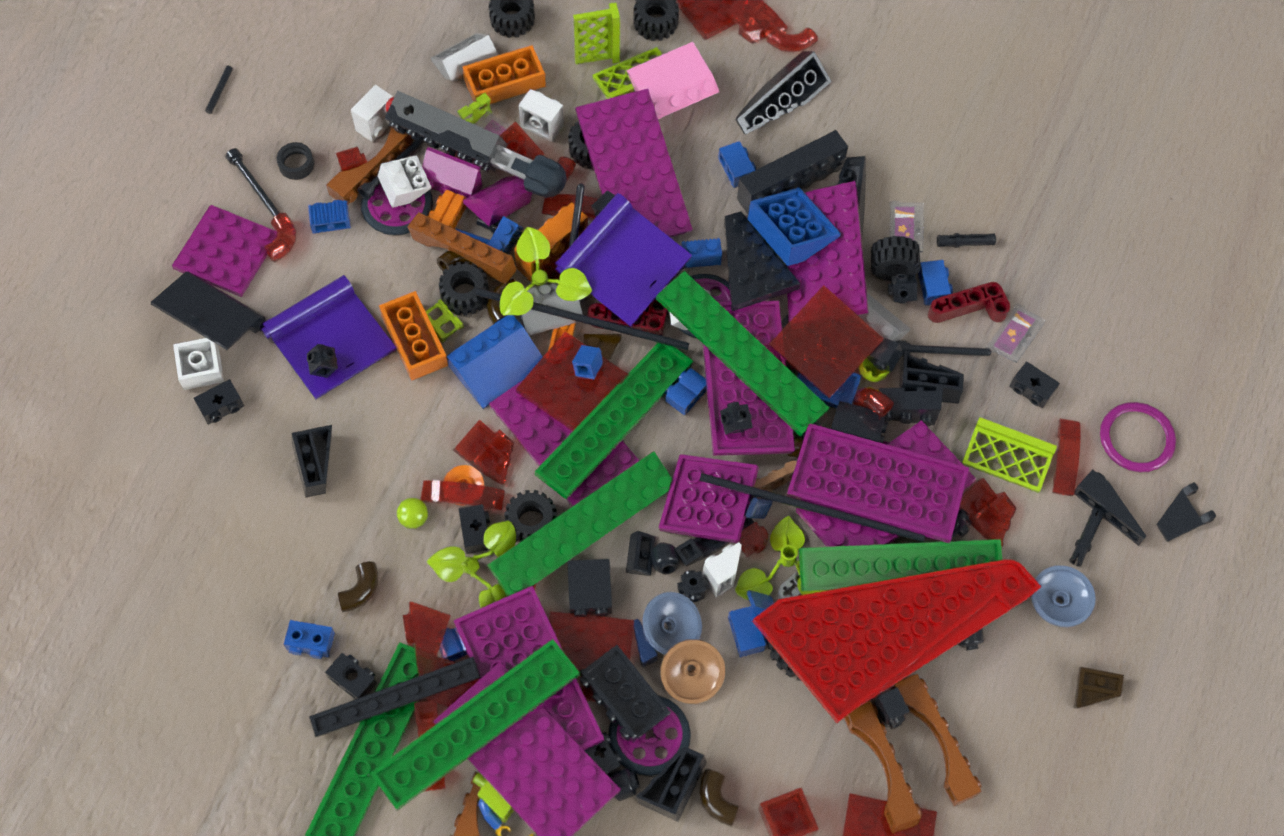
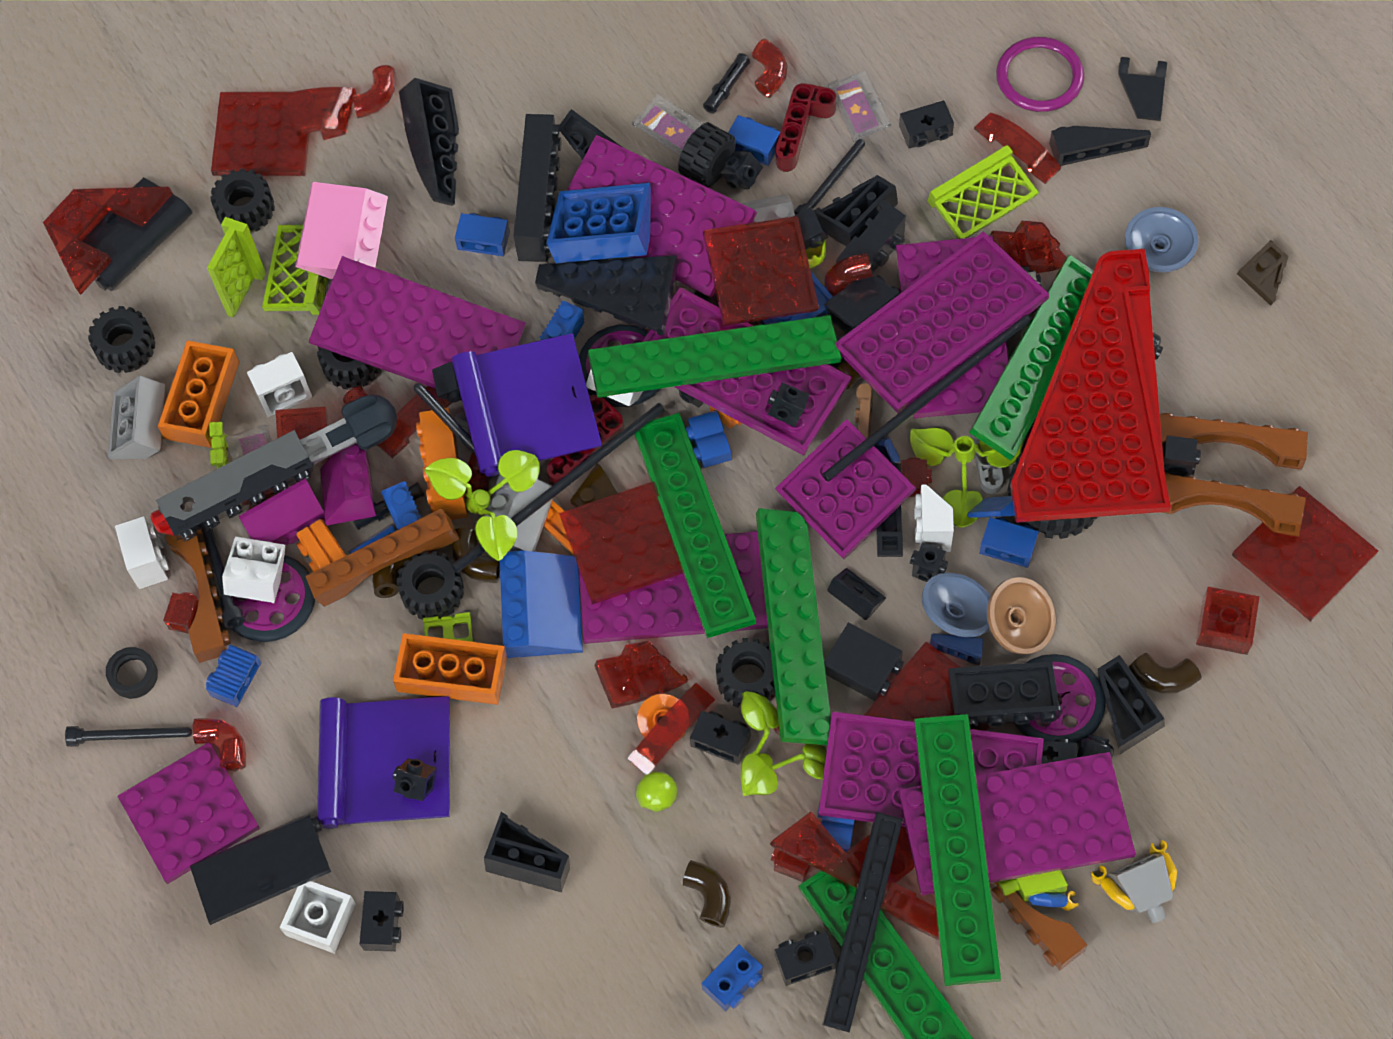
camera: 50 degrees left, 0 degrees up
(587, 362) = (619, 507): blue brick -> none
(665, 558) = (880, 571): black head -> none
(1002, 261) = (775, 67): none -> clear red cylinder
(1083, 544) = (1117, 190): black pin -> none

